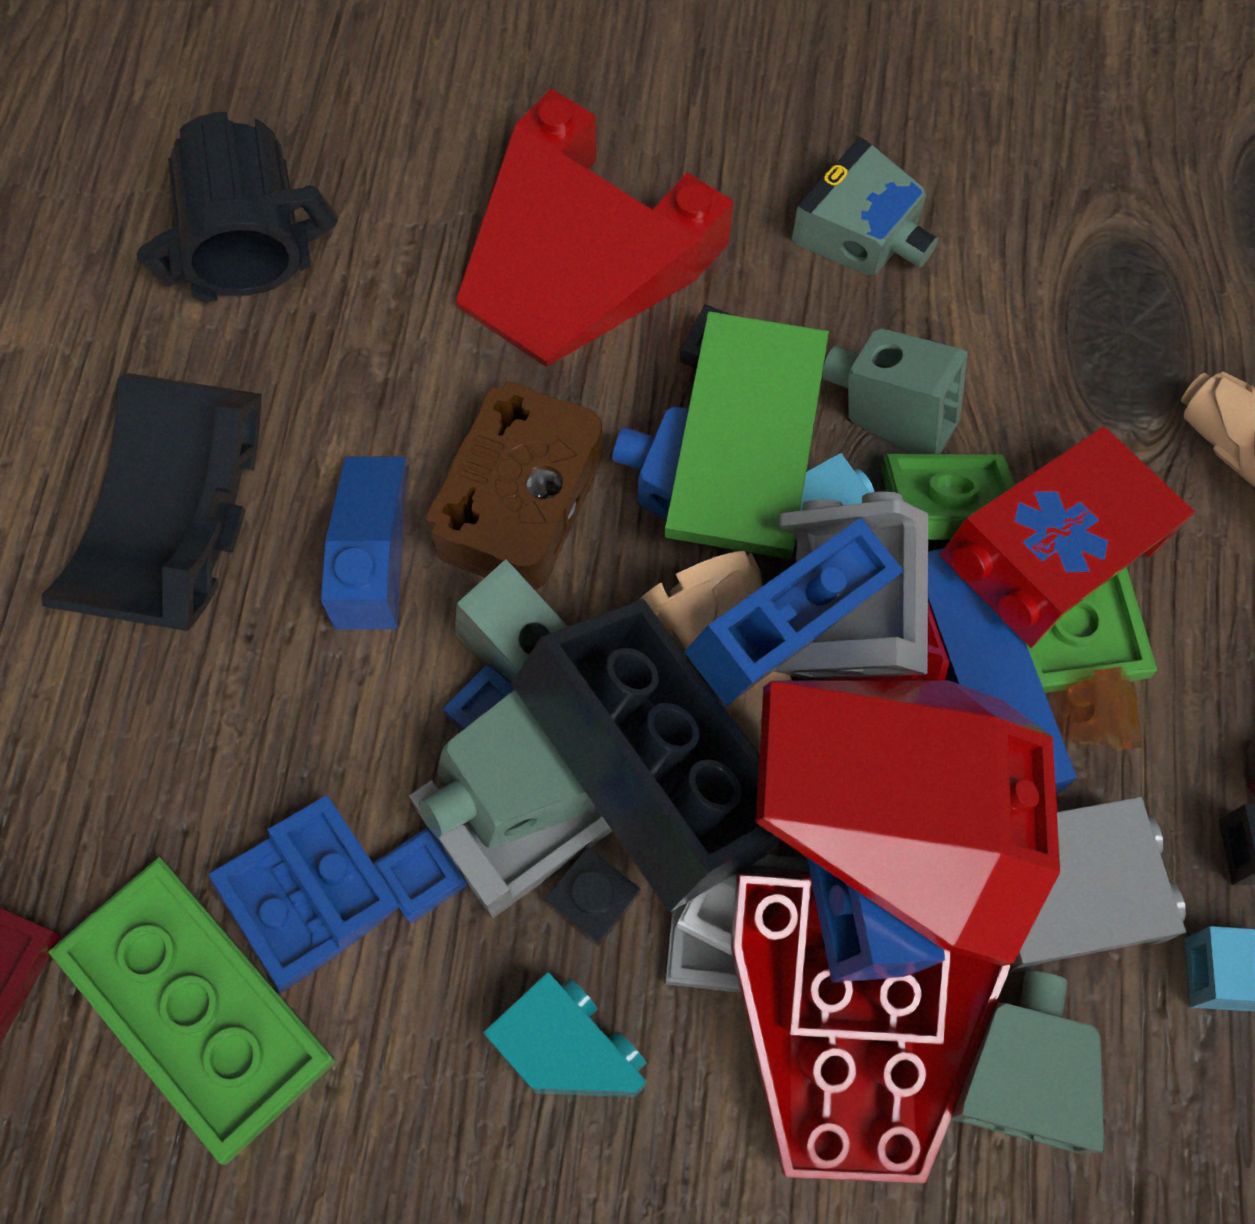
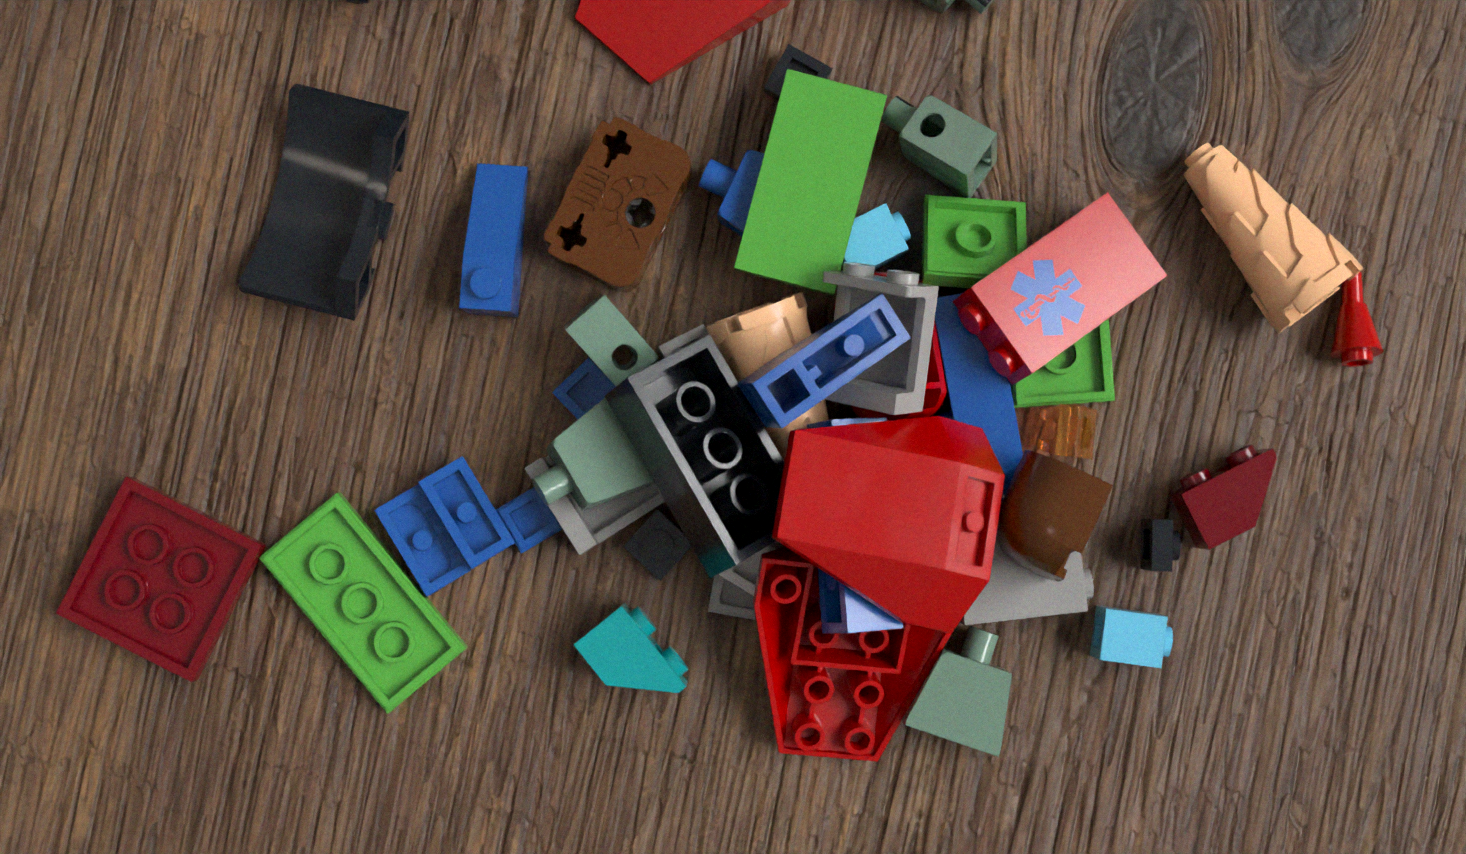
camera: 10 degrees right, 20 degrees up
(1119, 784) = (1048, 513): none -> reddish brown brick

